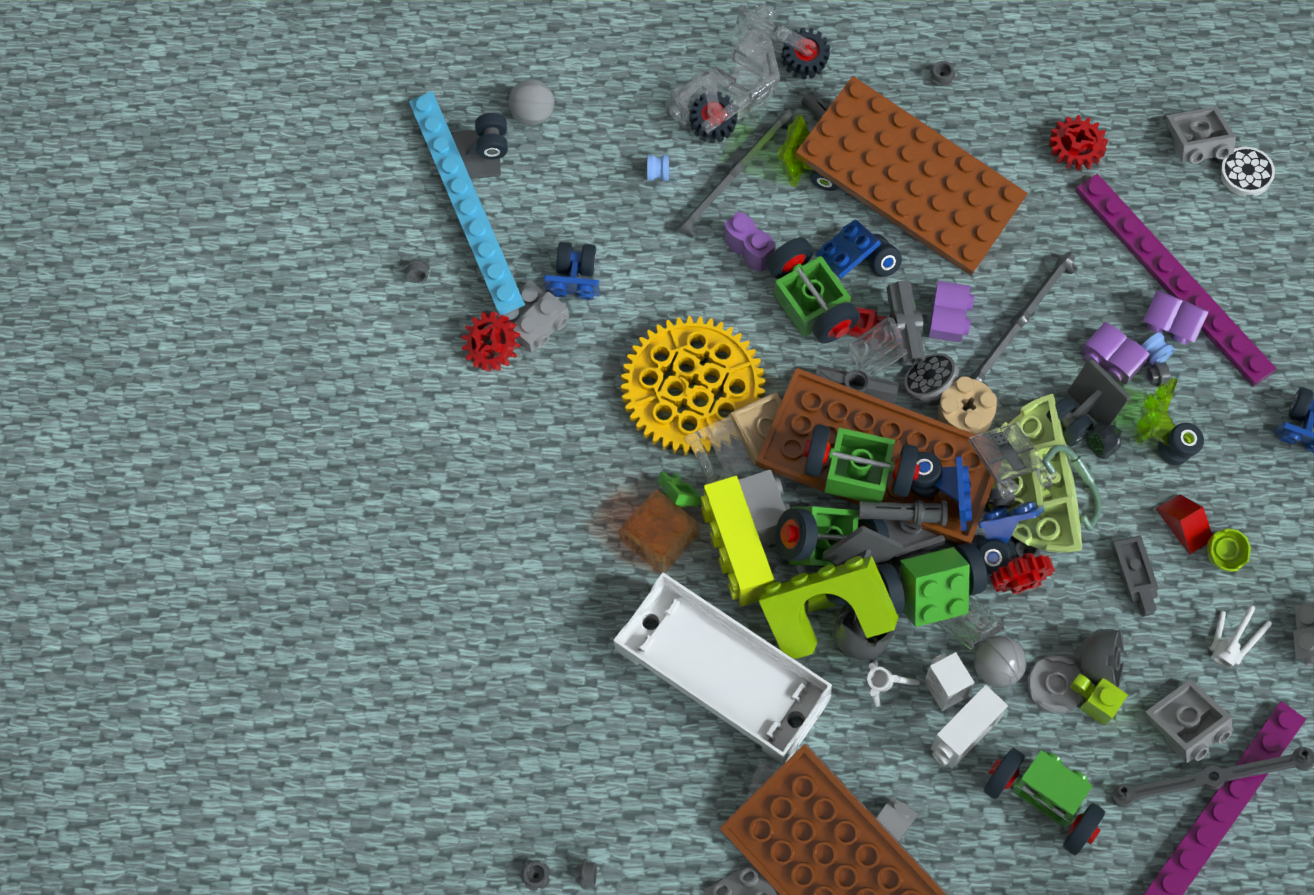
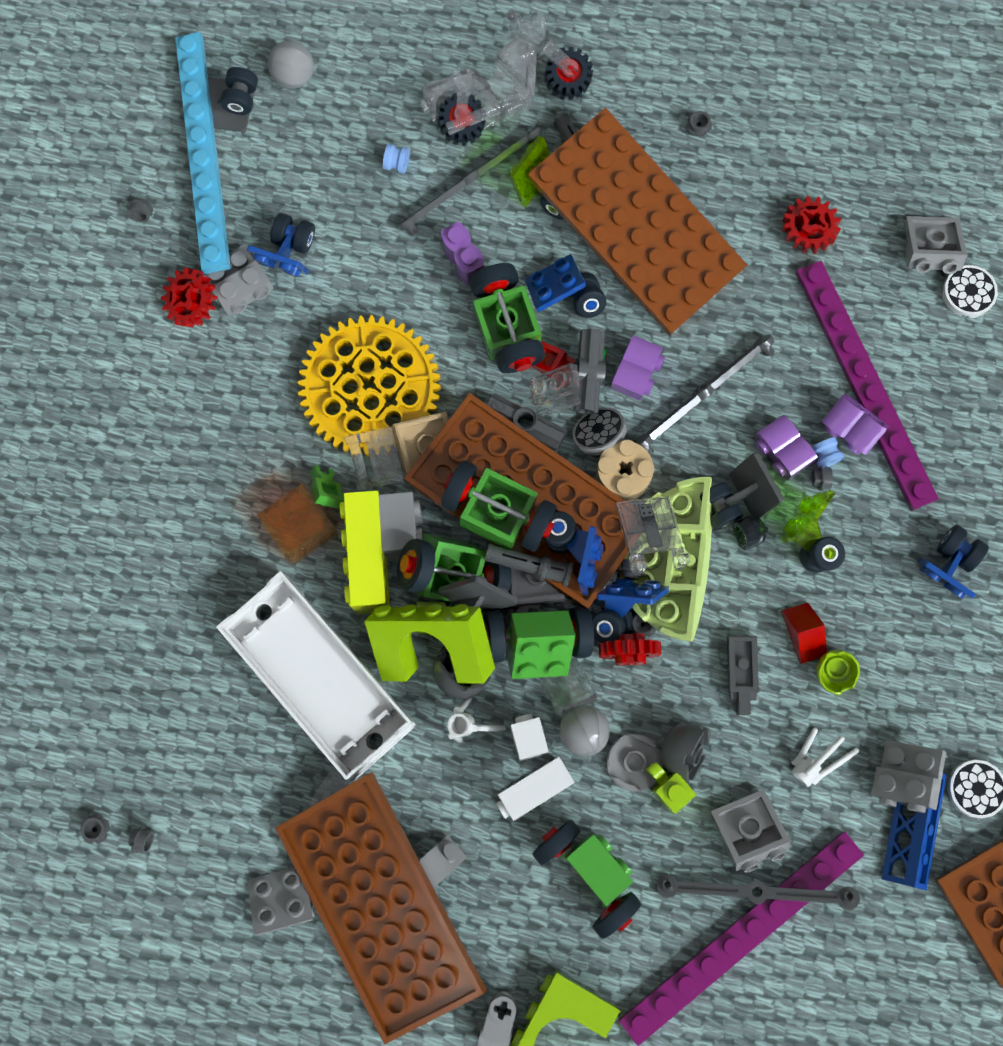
camera: 10 degrees right, 10 degrees up
(1086, 476) = (722, 565): sand green piece -> none

